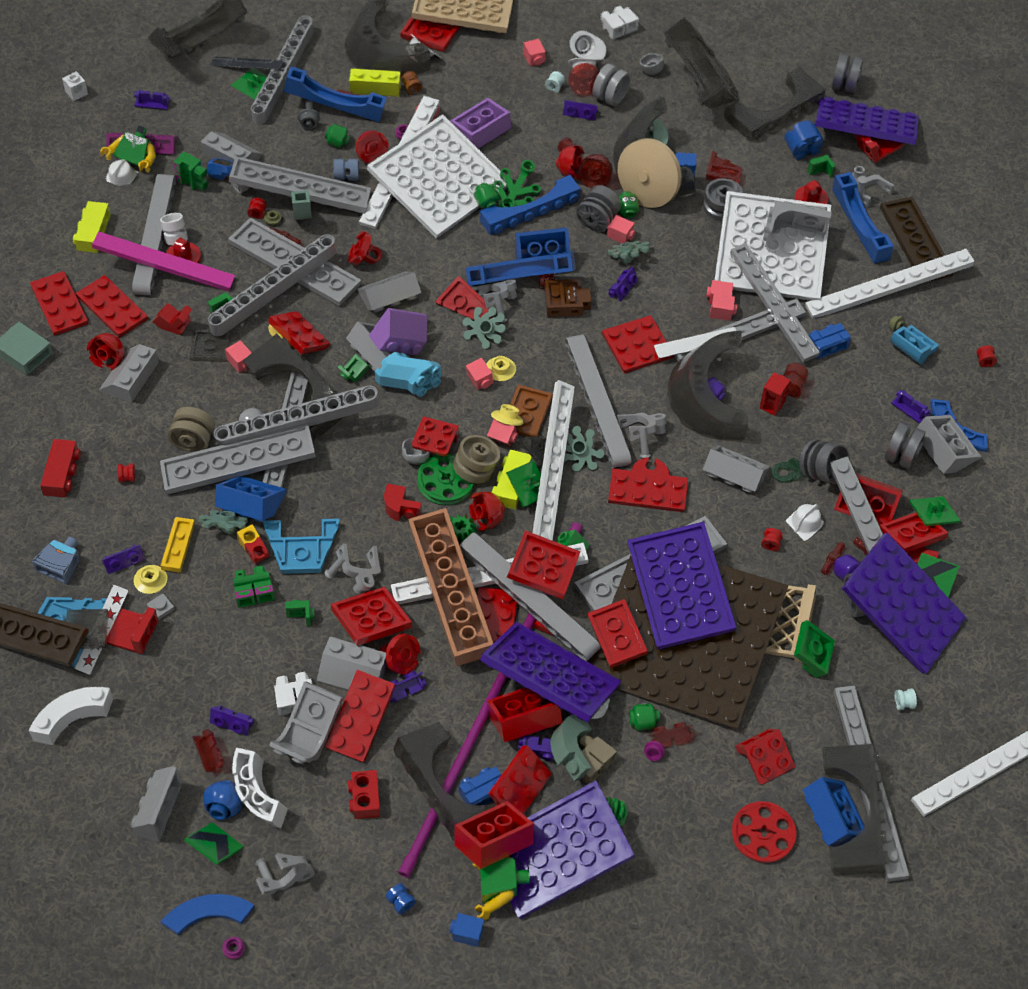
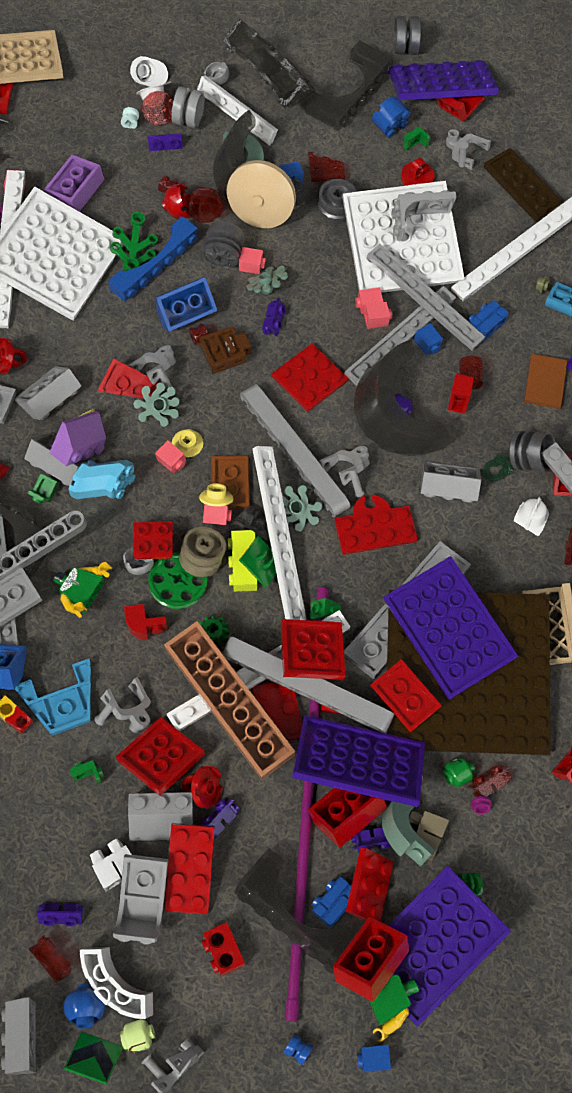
camera: 20 degrees left, 10 degrees up
(245, 584) = (20, 762): green hips -> none
(260, 839) = (137, 1036): none -> yellowish green head
(356, 458) = (81, 587): none -> torso
(486, 195) = (108, 262): green head -> none
(487, 506) = (231, 599): red cylinder -> none
(520, 268) = (146, 342): blue arch -> none
(534, 52) = (98, 91): coral brick -> none
(619, 22) = (169, 37): white hips -> none
(629, 205) = (250, 230): green head -> none
(652, 92) = (235, 108): none -> white tile
(686, 344) = (364, 361): white sticker -> none
(764, 341) = (428, 339): none -> blue brick
(772, 539) = (510, 545): red wheel -> none
(866, 409) = (545, 381): none -> dark orange tile
(876, 244) = (496, 207): blue arch -> none

